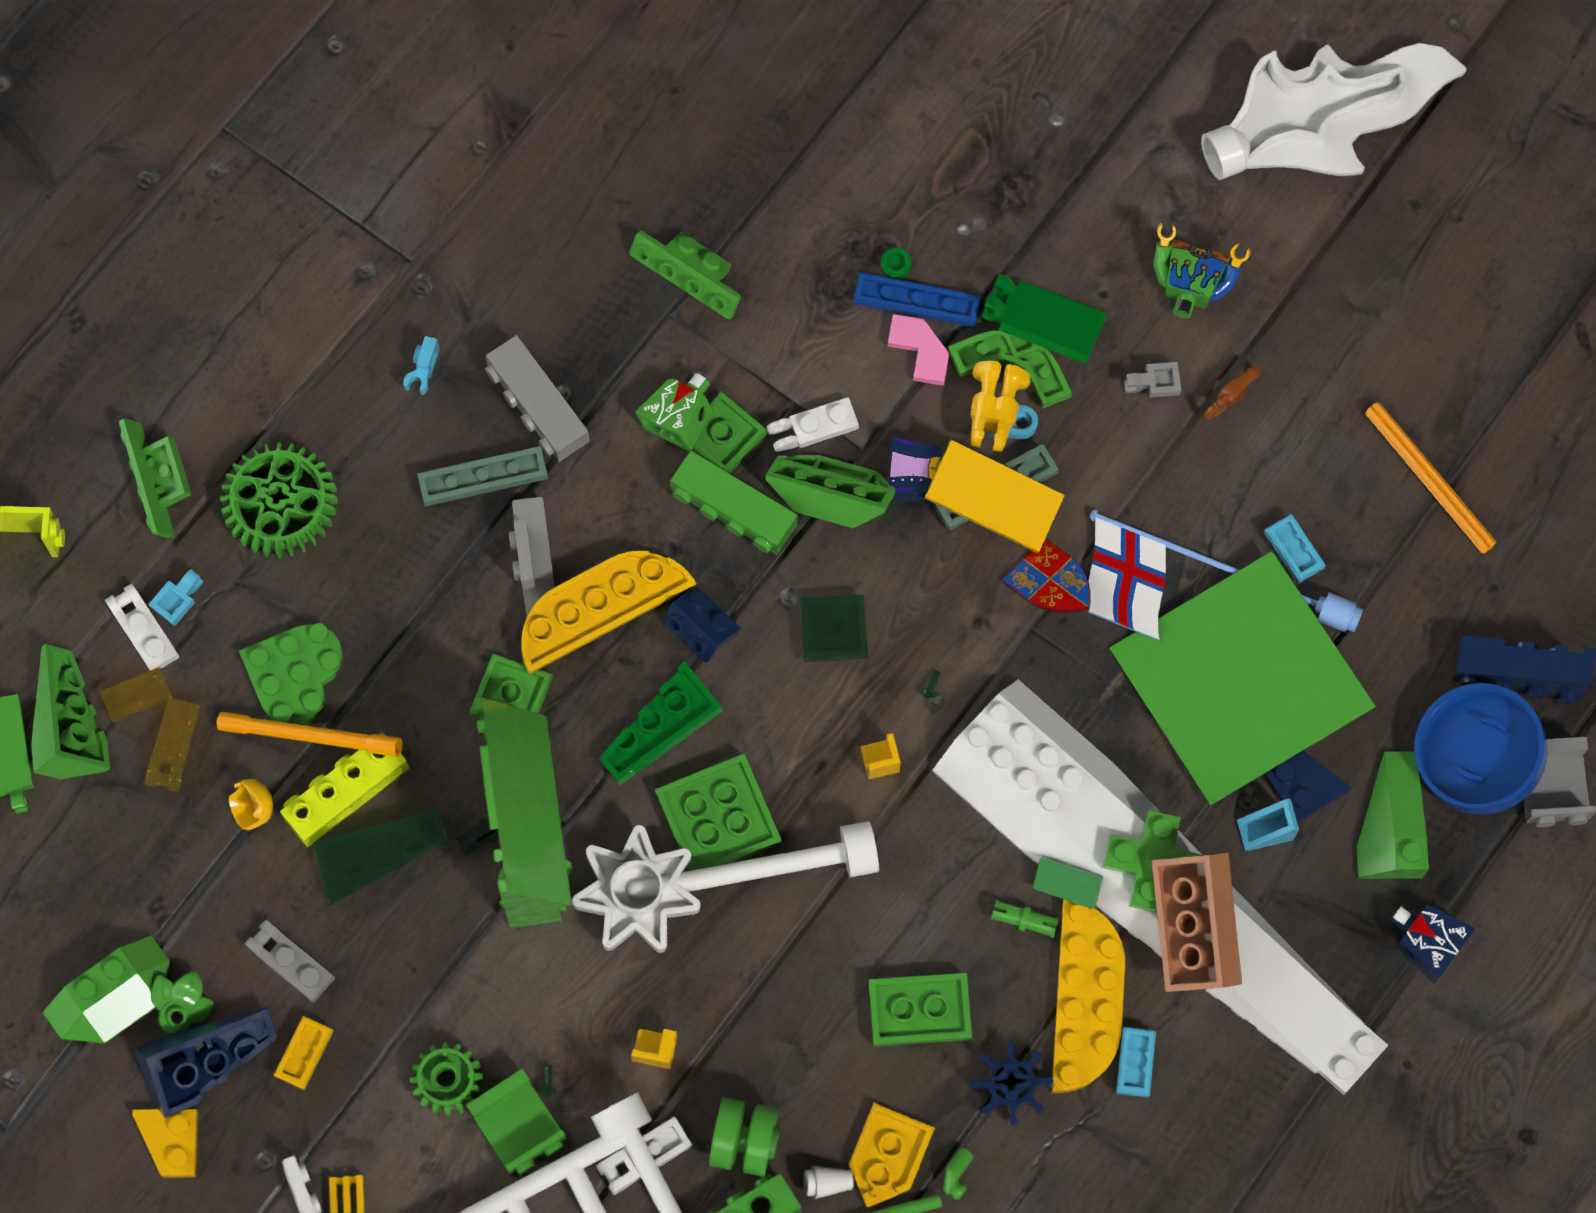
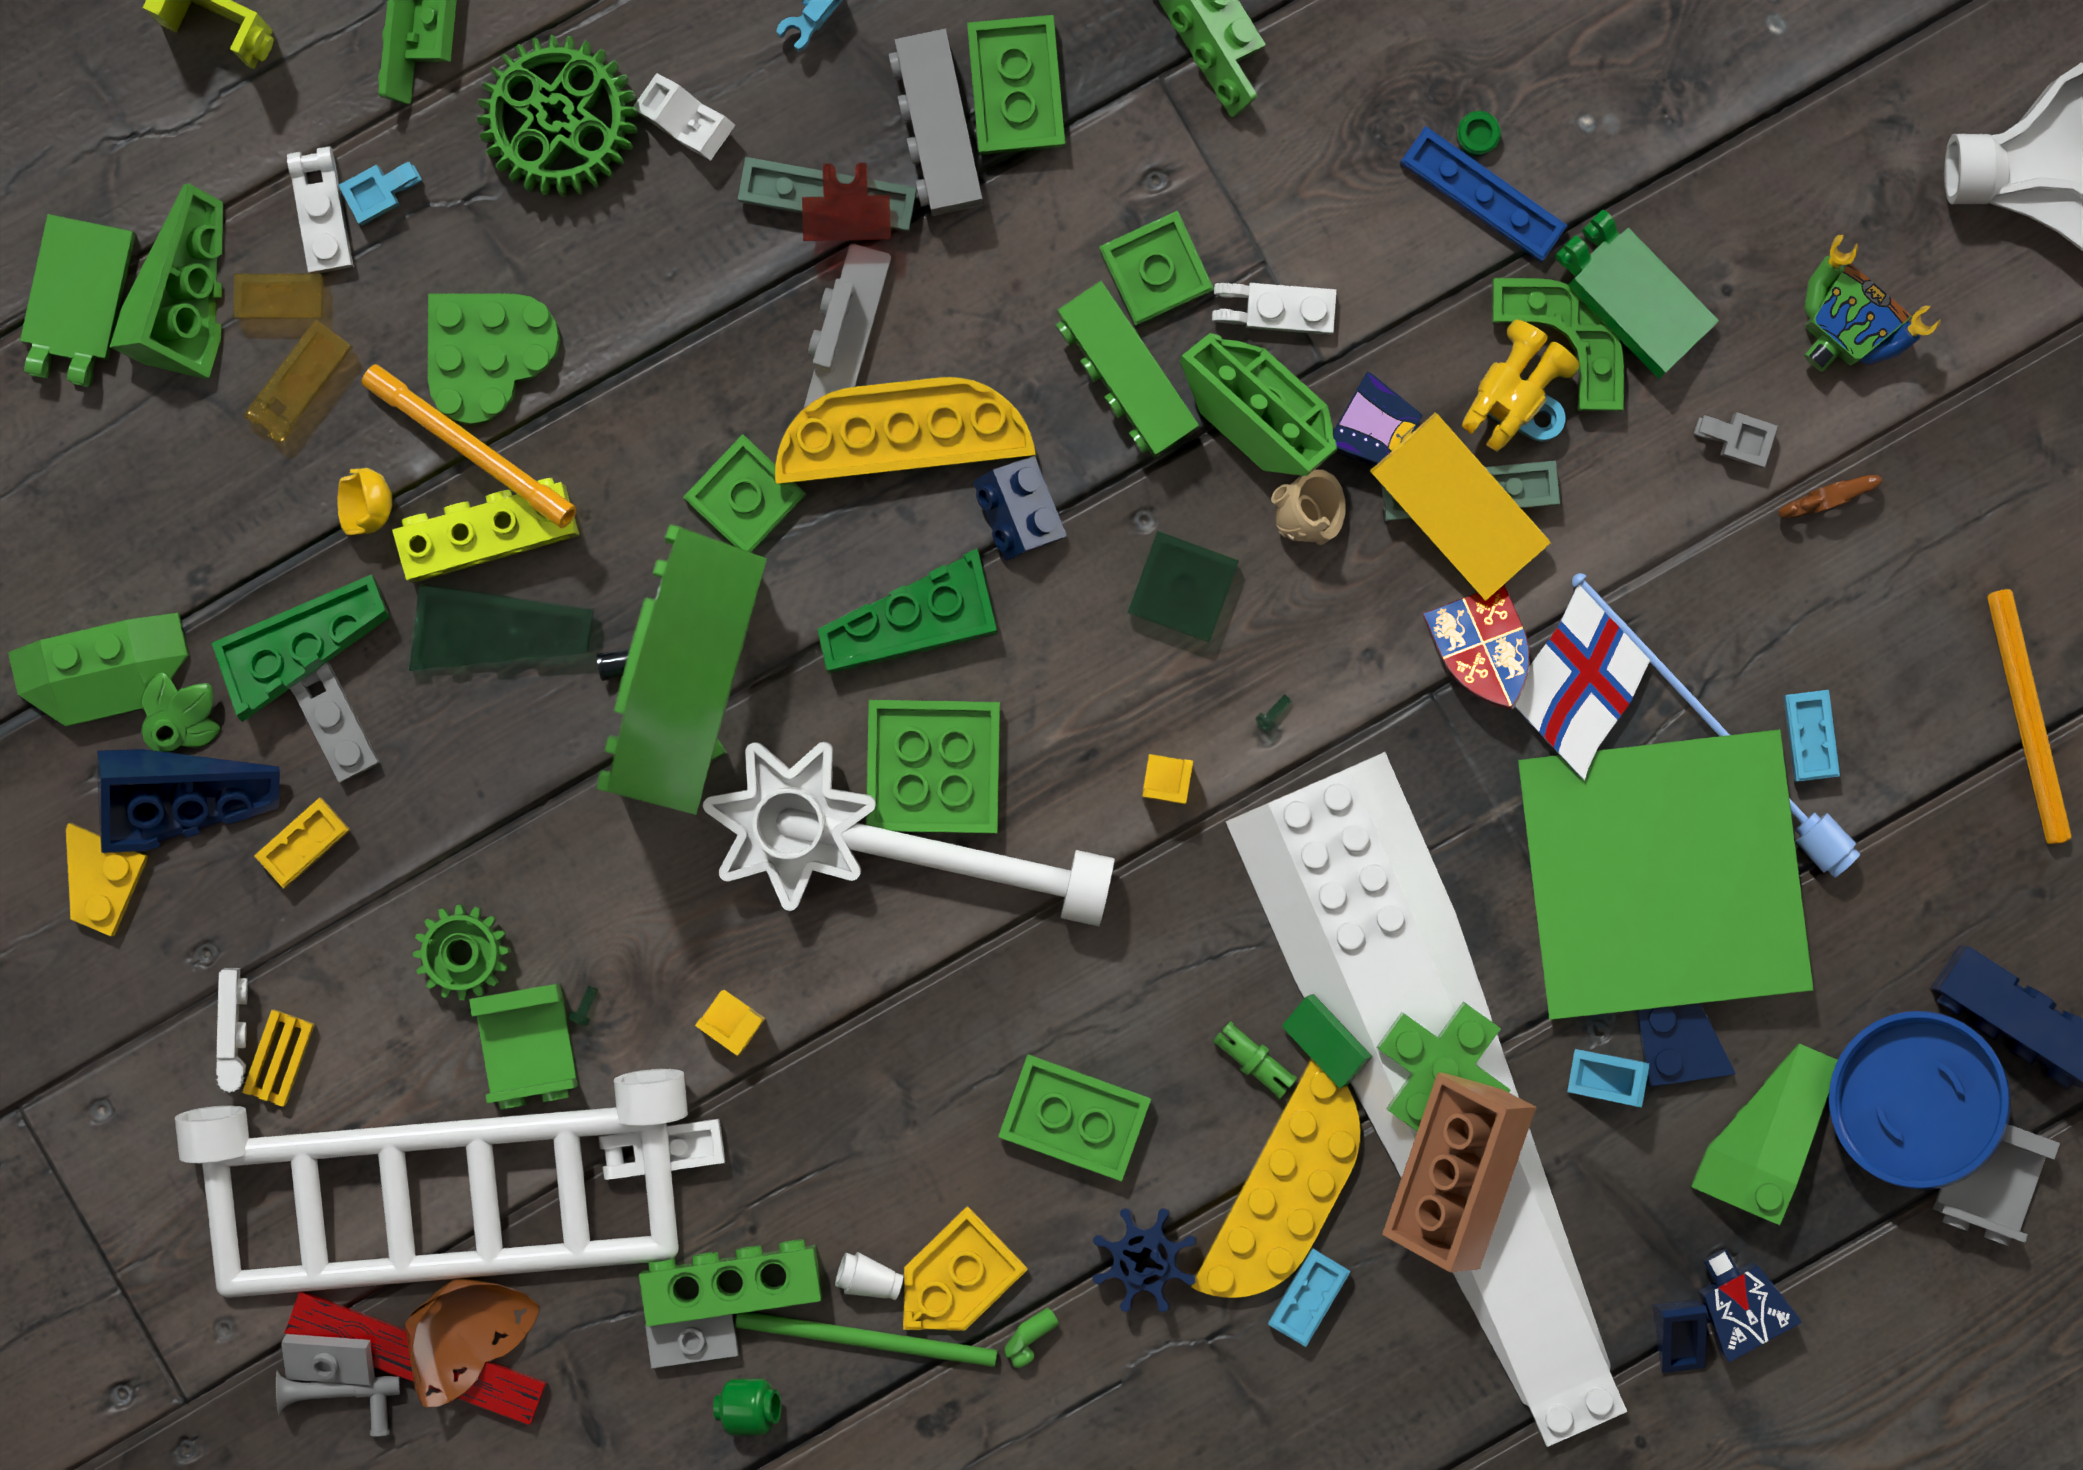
camera: 25 degrees right, 15 degrees up
(239, 923) = (288, 647): none -> green wing
(364, 468) = (683, 117): none -> white slope
(500, 477) = (846, 210): none -> clear red plate
(578, 356) = (1016, 84): none -> bright green plate
(677, 411) = (1109, 217): bright green torso -> none
(733, 1137) = (776, 1180): bright green wheel -> none
(895, 540) = (1310, 508): none -> tan helmet
(917, 336) = (1461, 244): bright pink tile -> none
(1399, 976) = (1681, 1335): none -> dark blue slope

